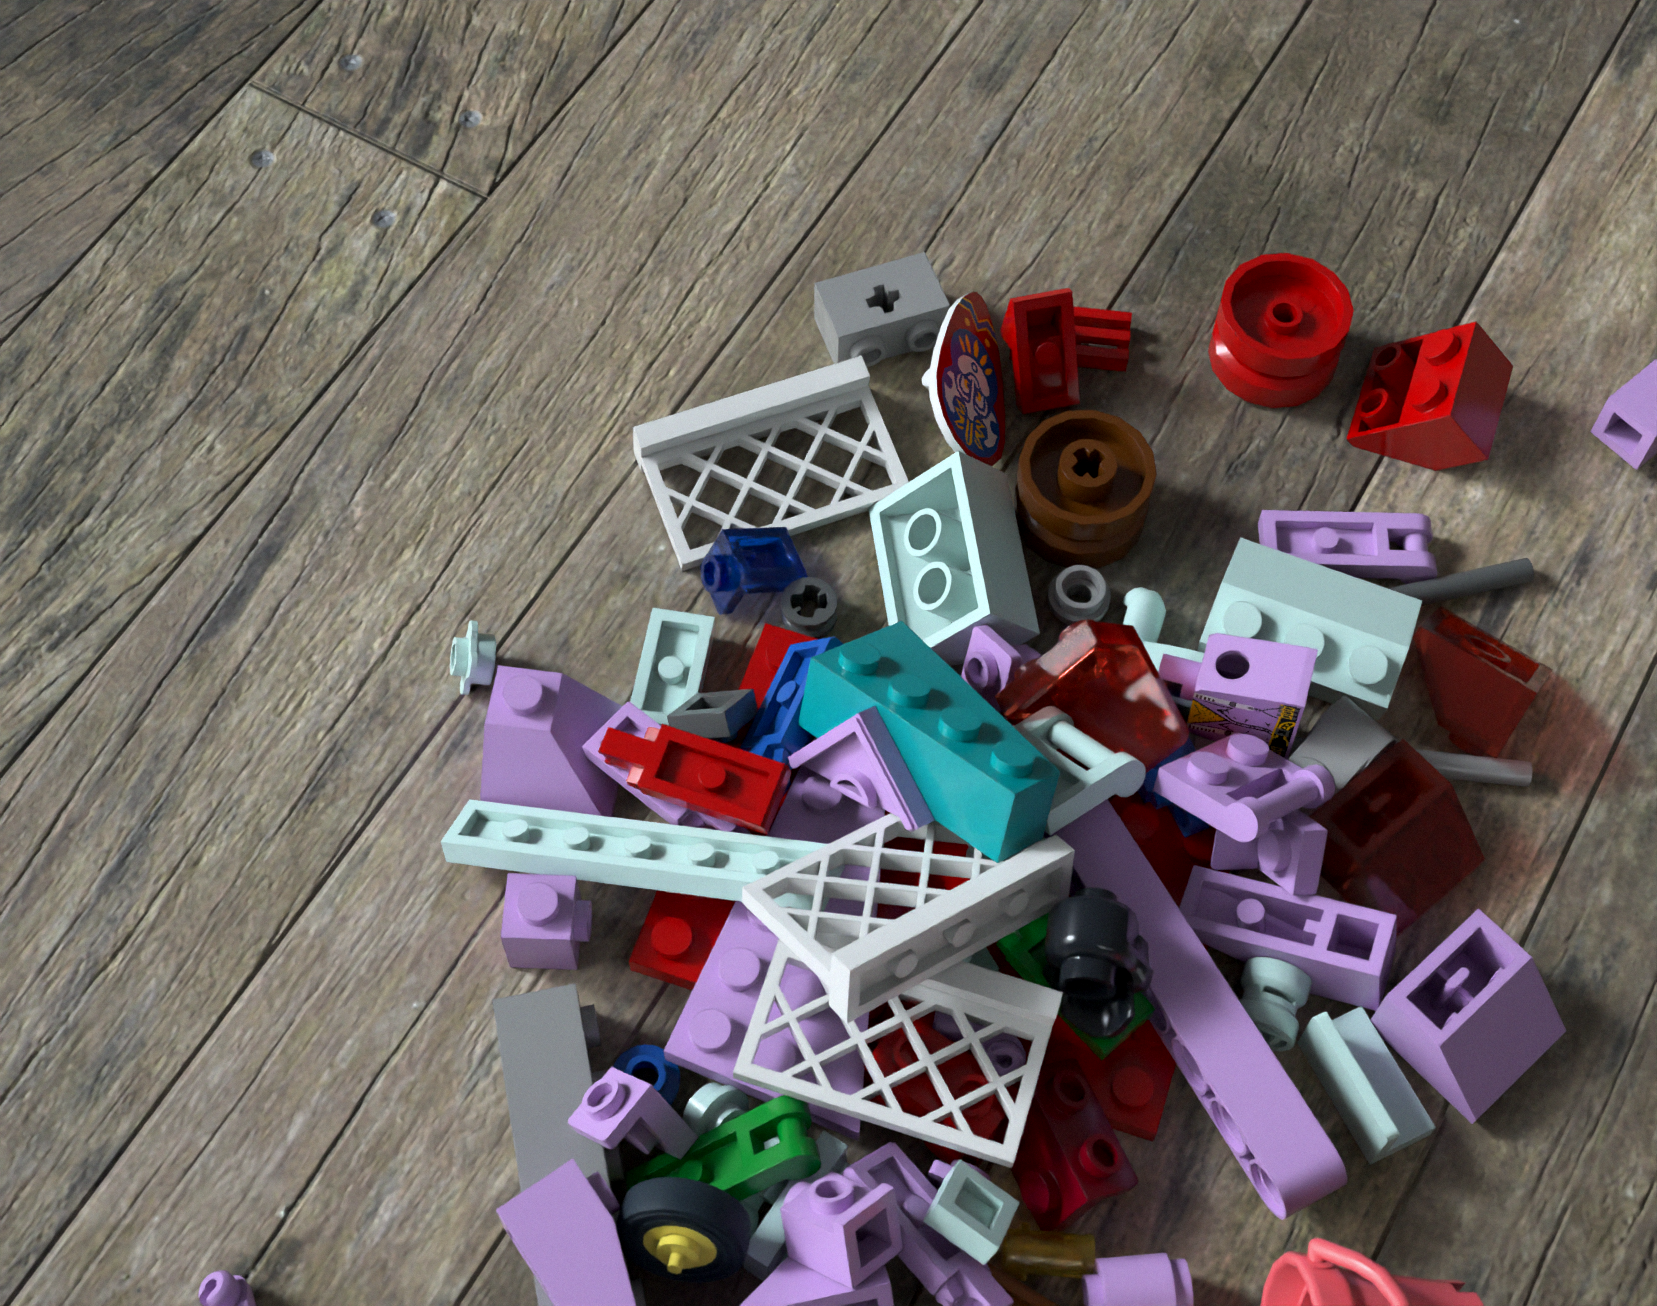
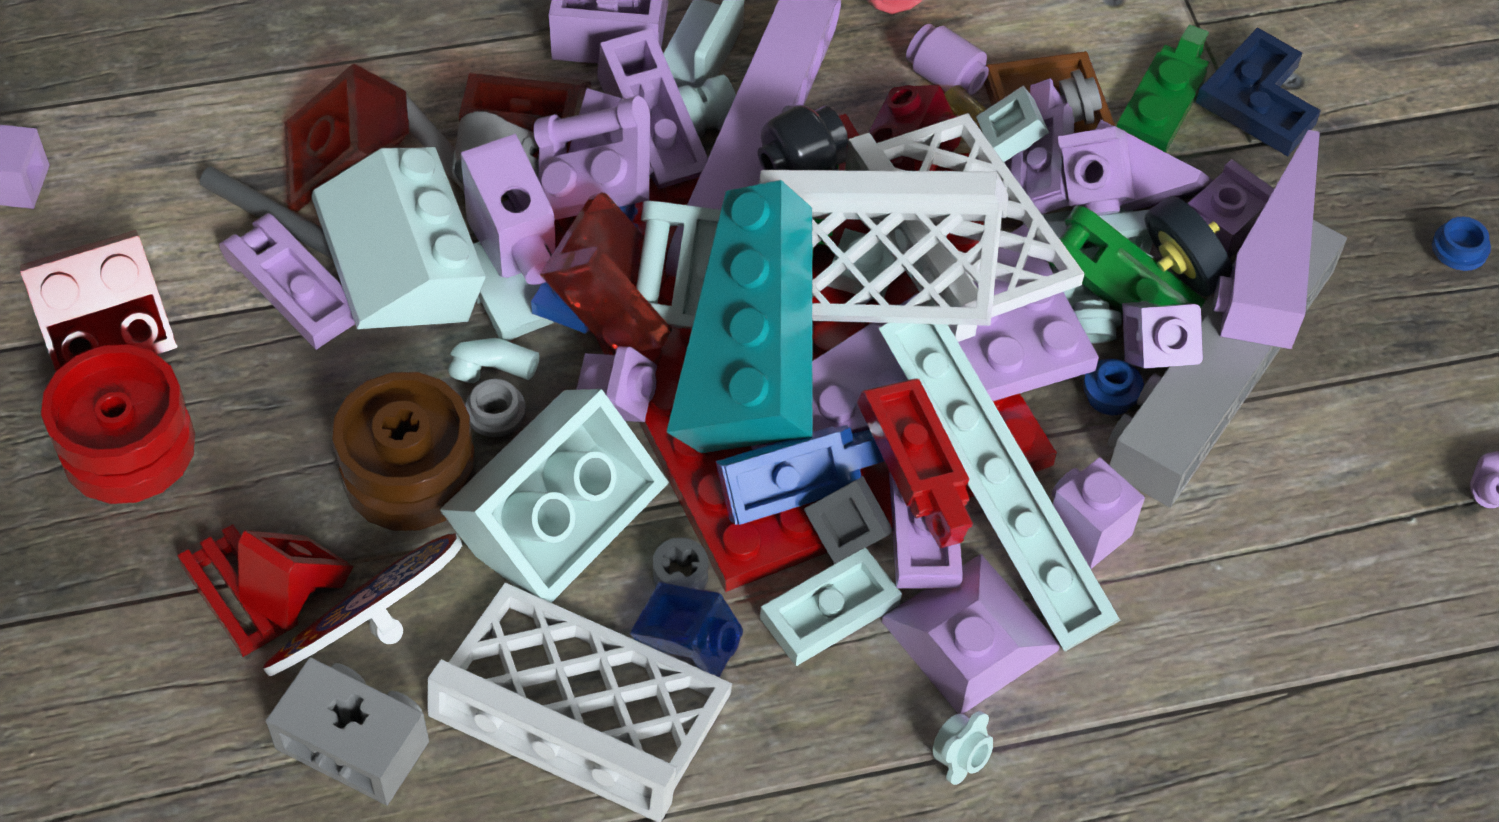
camera: 135 degrees left, 5 degrees down
(866, 768) = (817, 349): lavender tile -> none

